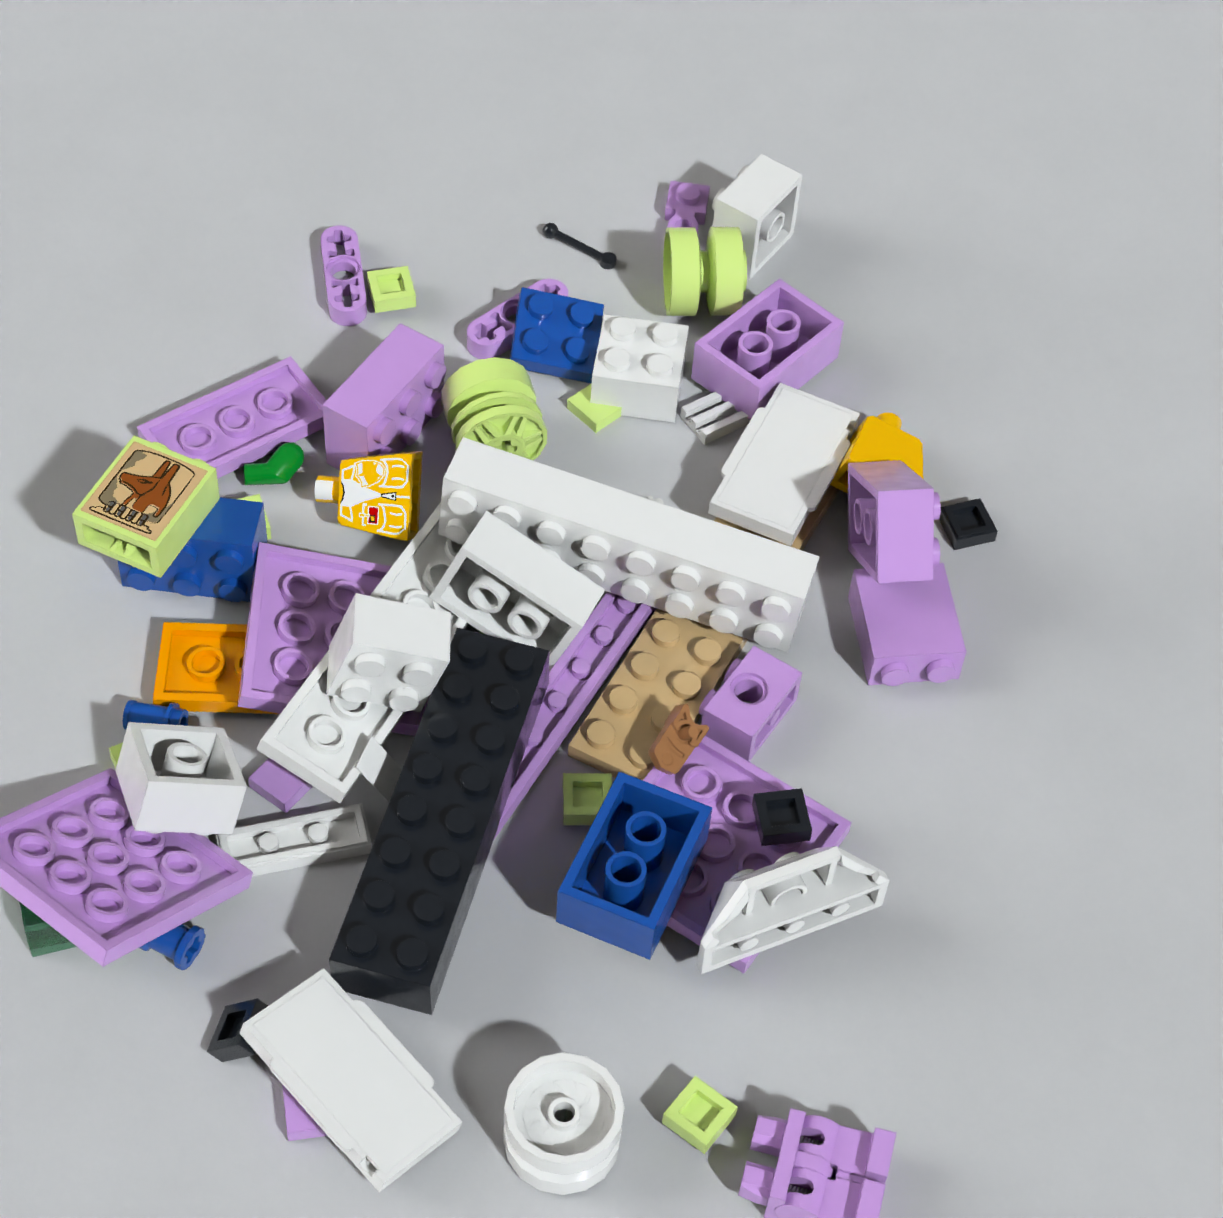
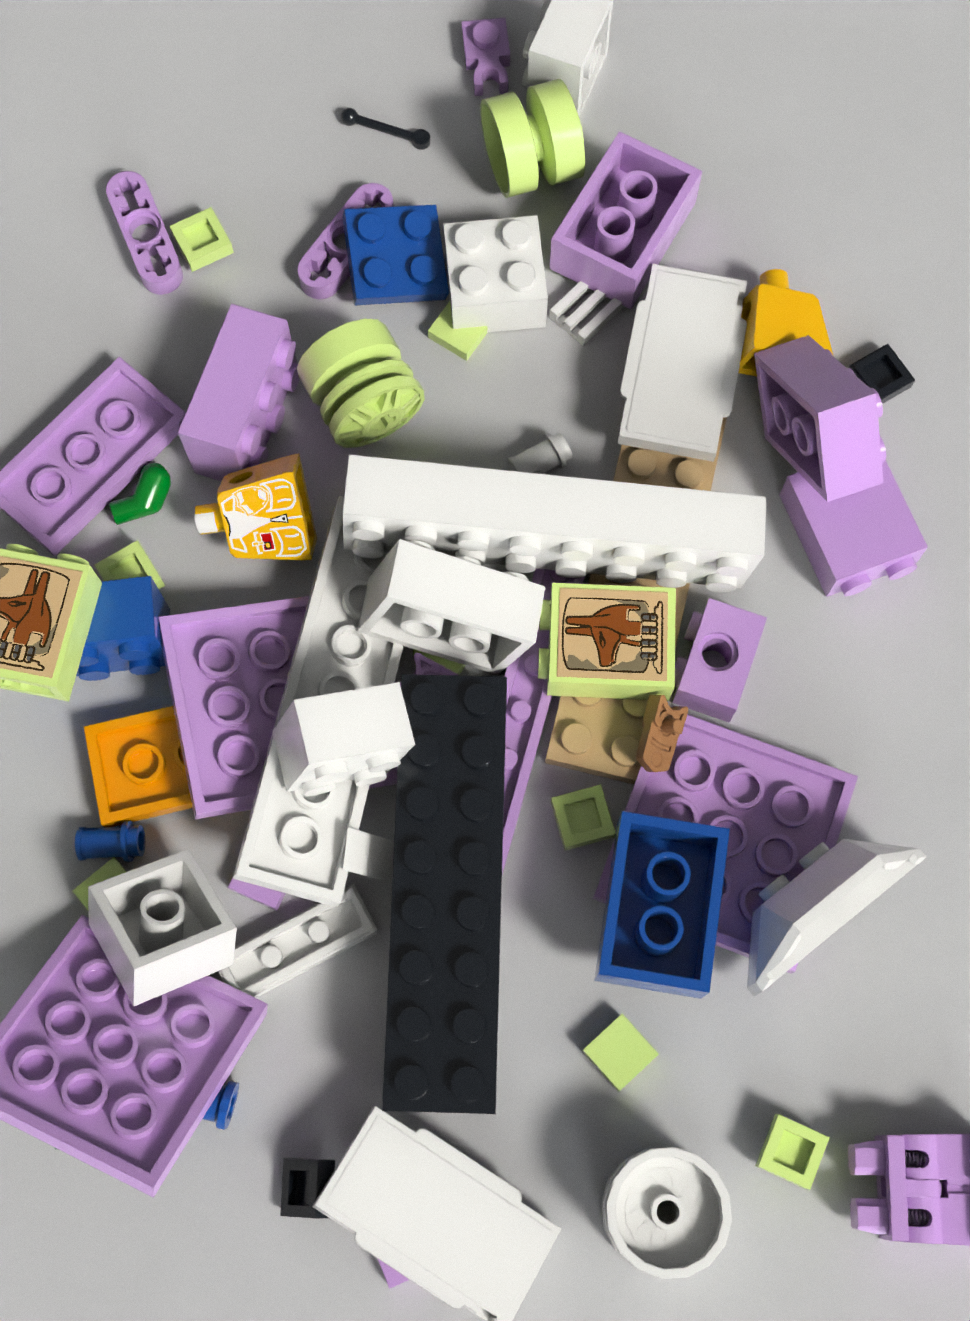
camera: 10 degrees left, 20 degrees up
(563, 998) = (620, 1052): none -> yellowish green tile
(650, 655) = (608, 641): none -> brick
(781, 817) = (791, 798): black plate -> none

